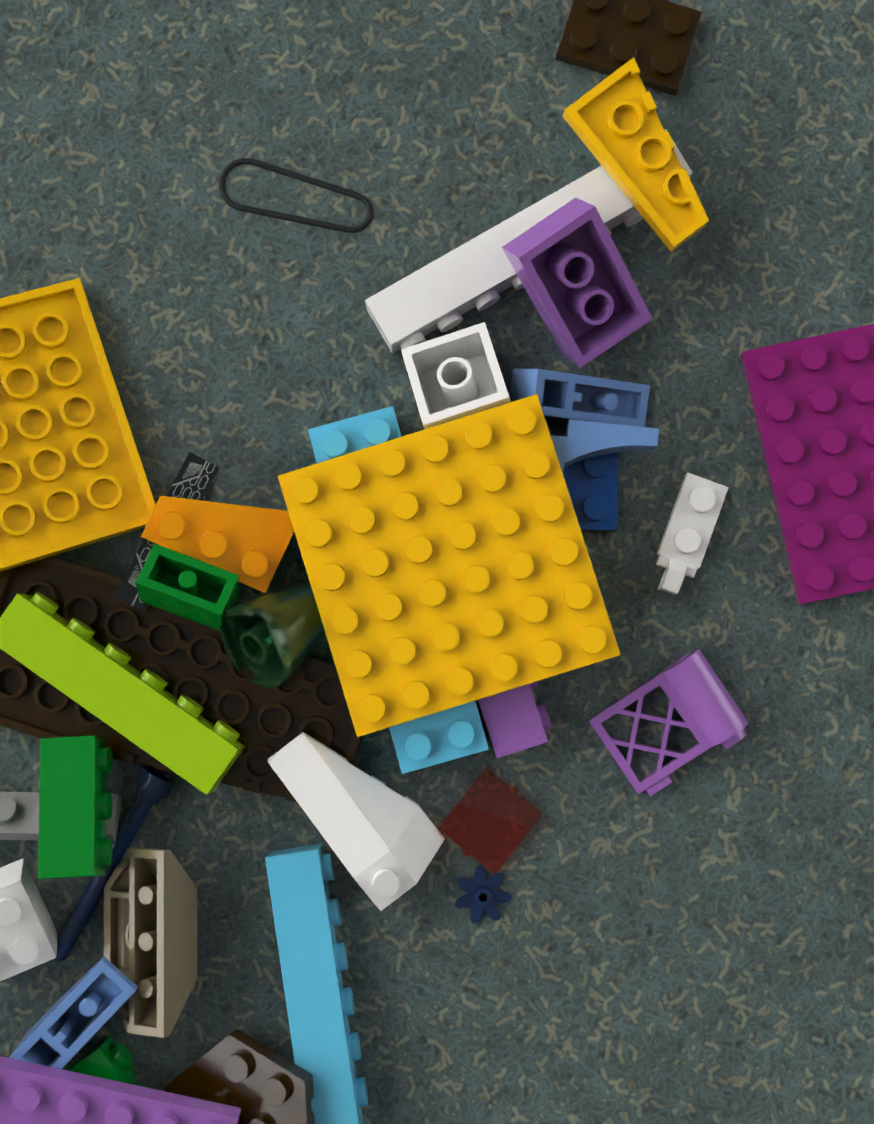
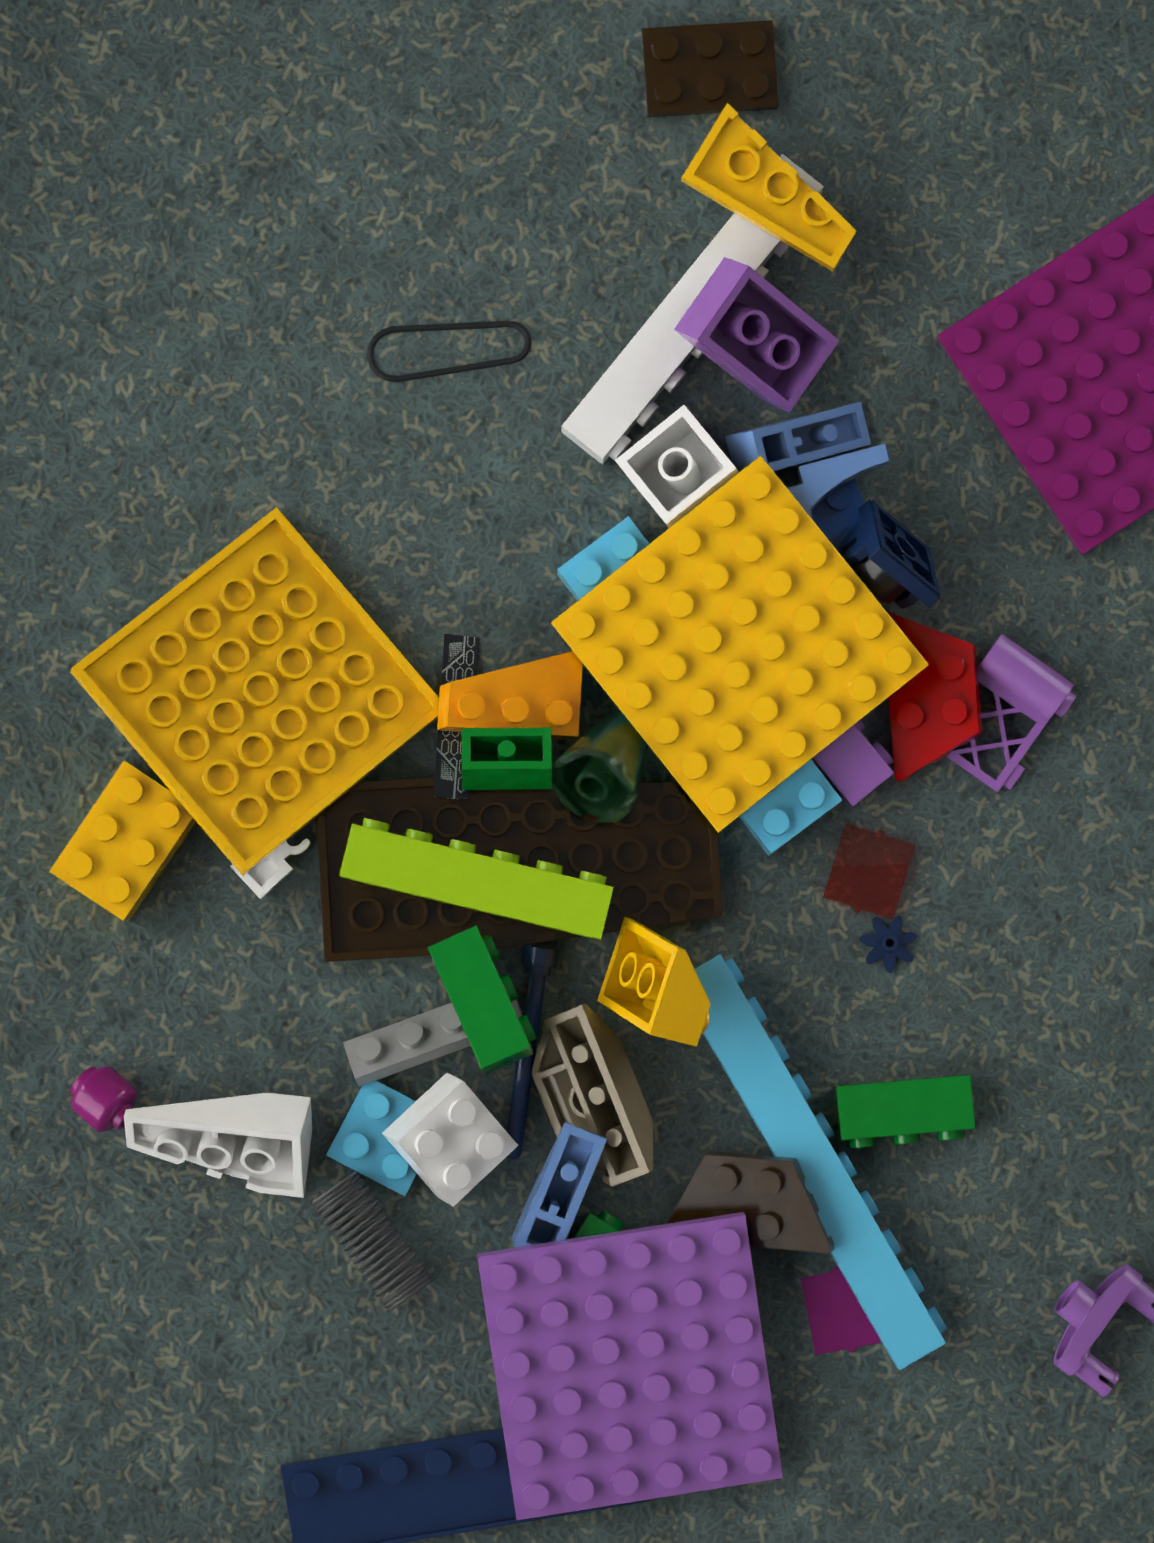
camera: 30 degrees left, 0 degrees up
(235, 868) = (655, 986): none -> yellow slope
(371, 828) = (754, 912): white wedge -> none
(436, 1061) = (904, 1110): none -> green brick
(613, 695) = (936, 706): none -> red wing
(621, 540) = (890, 559): none -> dark blue piece
(689, 530) = (951, 525): white hinge -> none

